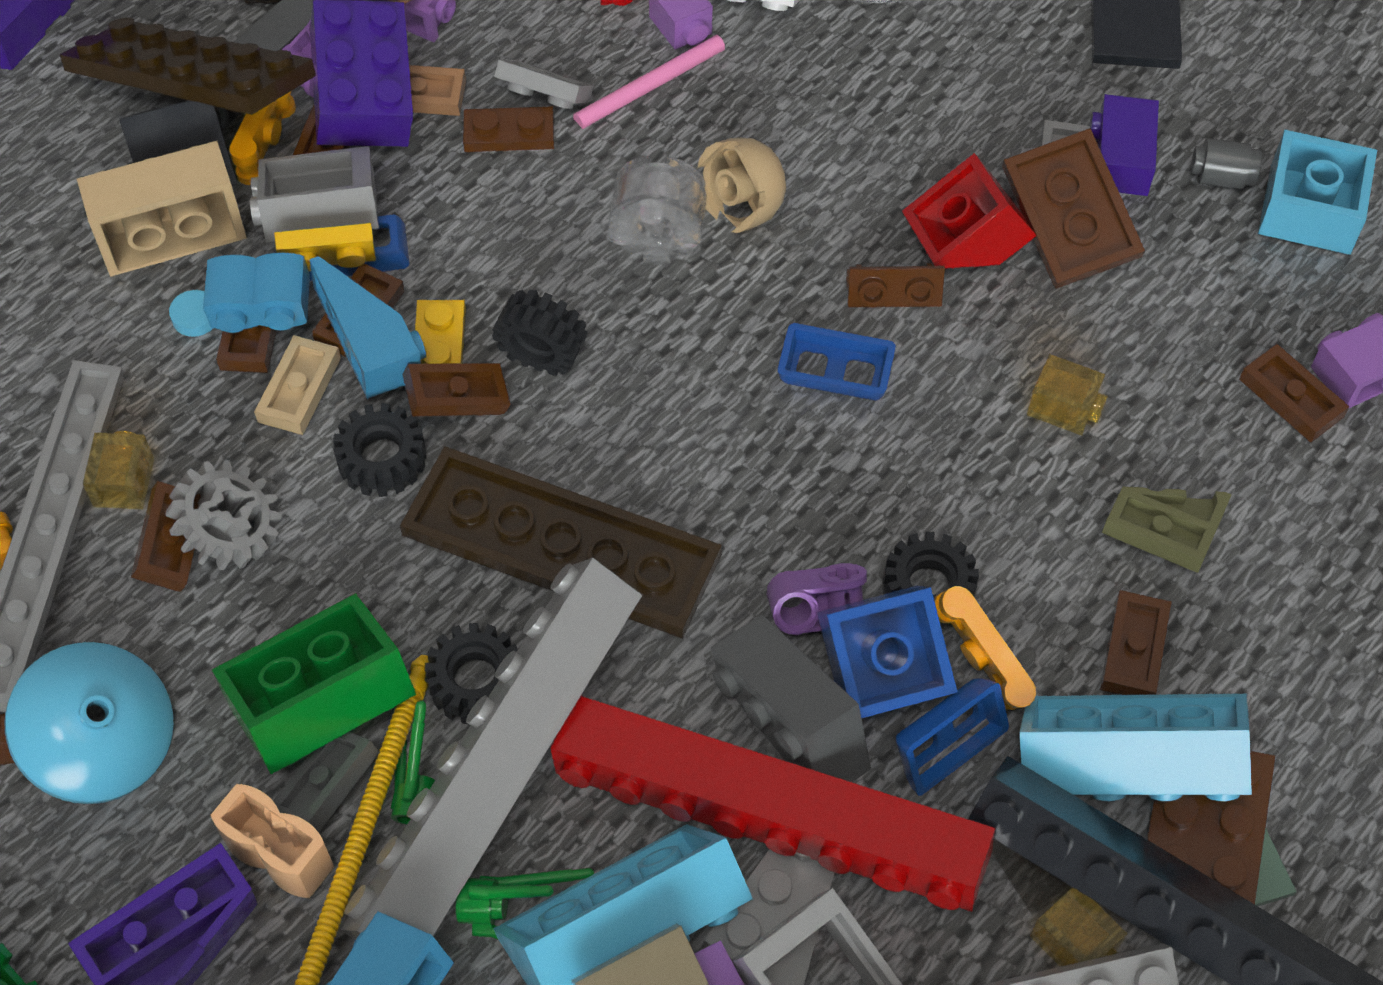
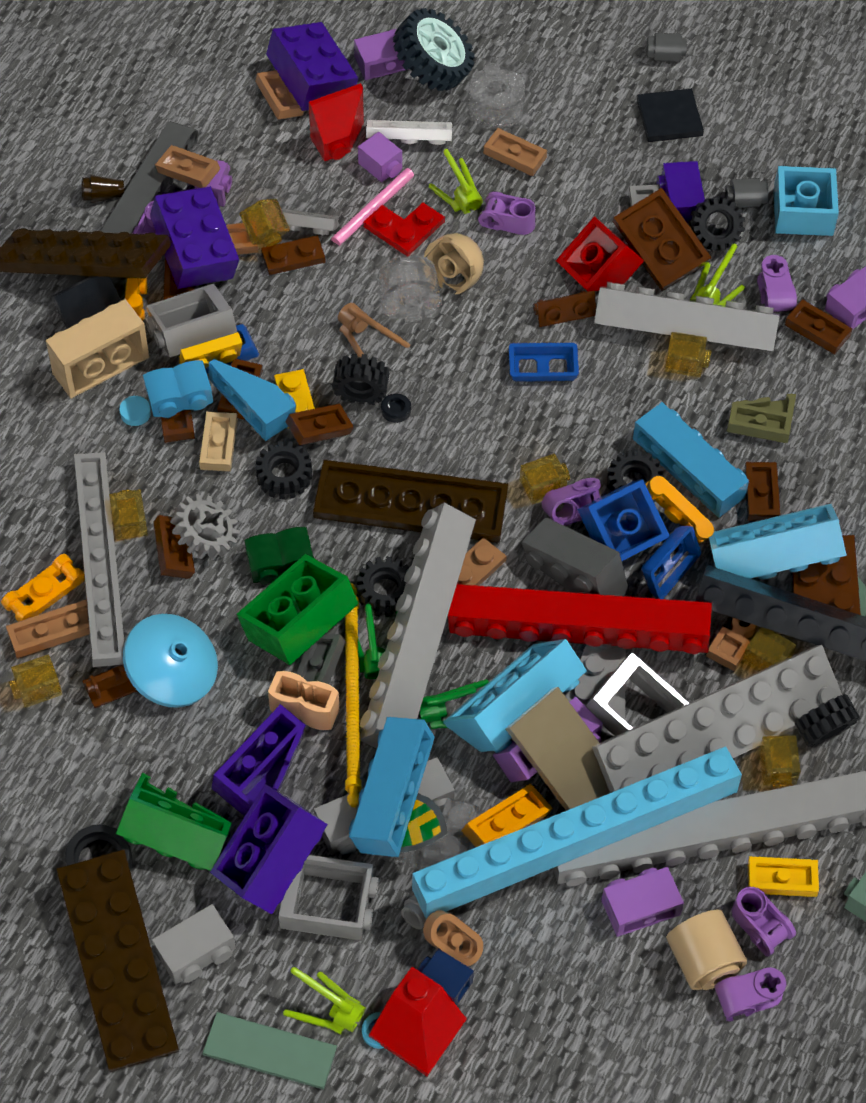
camera: 15 degrees left, 0 degrees up
(315, 578) = (273, 553): none -> dark green brick
(475, 71) = (265, 222): none -> clear yellow brick
(569, 244) = (357, 321): none -> medium nougat plant
(586, 388) = (396, 408): none -> black tile
(634, 669) = (480, 563): none -> medium nougat plate
(684, 128) = (405, 233): none -> red plate
(781, 545) = (543, 476): none -> clear yellow brick
(791, 91) = (466, 194): none -> lime plant
(848, 128) = (509, 213): none -> medium lavender piece
(885, 40) = (515, 152): none -> medium nougat plate
(1015, 904) = (730, 645): none -> medium nougat plate
(1030, 568) = (691, 459): none -> dark azure brick
(1104, 341) = (701, 317): none -> light grey brick
(1125, 311) = (710, 289): none -> lime plant
(1195, 200) = (734, 225): none -> black tyre
(1240, 314) = (776, 284): none -> medium lavender piece

